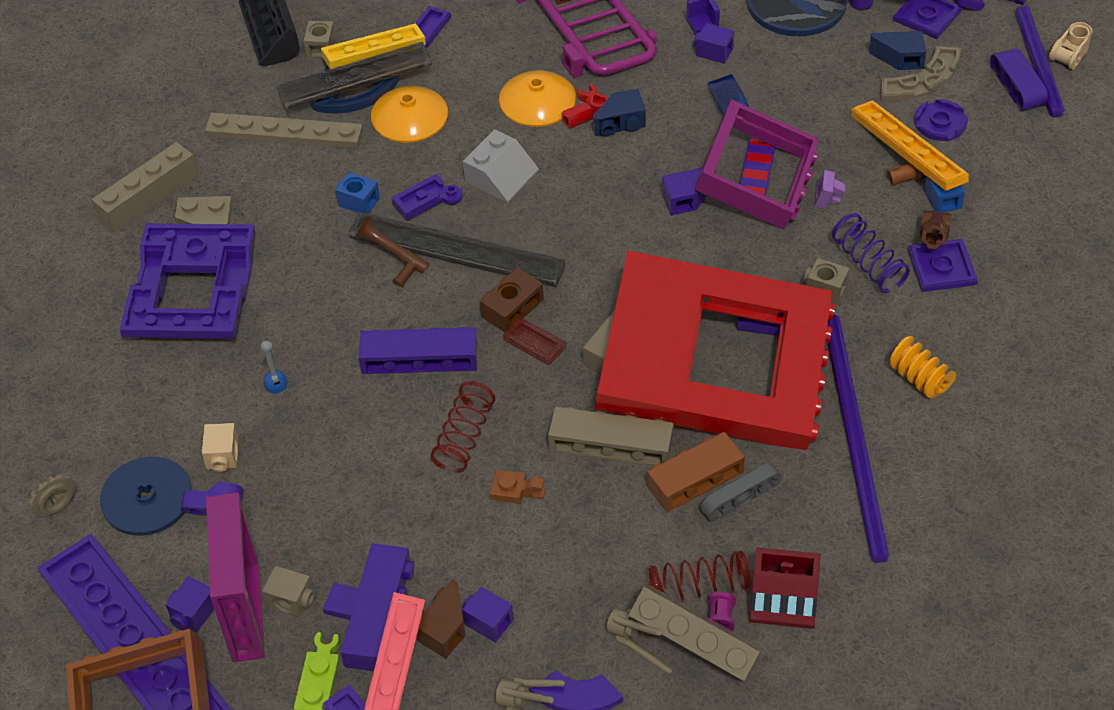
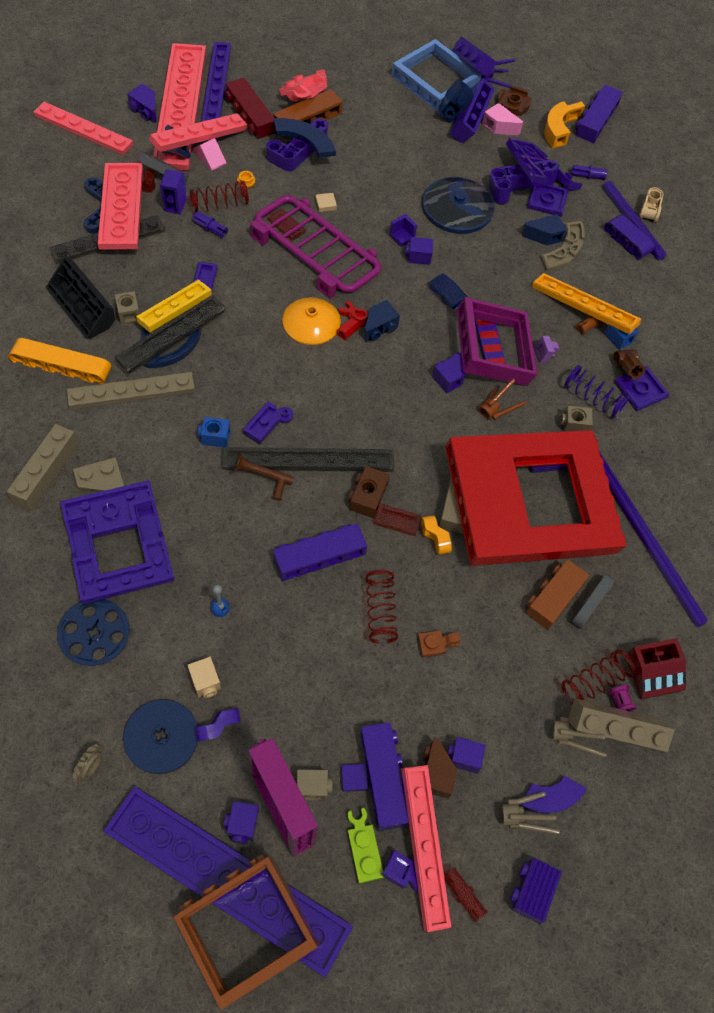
camera: 30 degrees left, 10 degrees up
(117, 360) = (85, 624): none -> dark blue wedge
(218, 81) = (60, 360): none -> light orange beam
(409, 114) = (222, 362): light orange dish -> none
(499, 166) = (312, 384): light grey slope -> none
(573, 366) = (440, 536): none -> light orange piece
(610, 436) = (488, 583): dark tan brick -> none
(717, 240) = (490, 406): none -> dark orange plant
(920, 370) = (668, 471): light orange piece -> none
(935, 126) = (590, 283): dark purple tile -> none

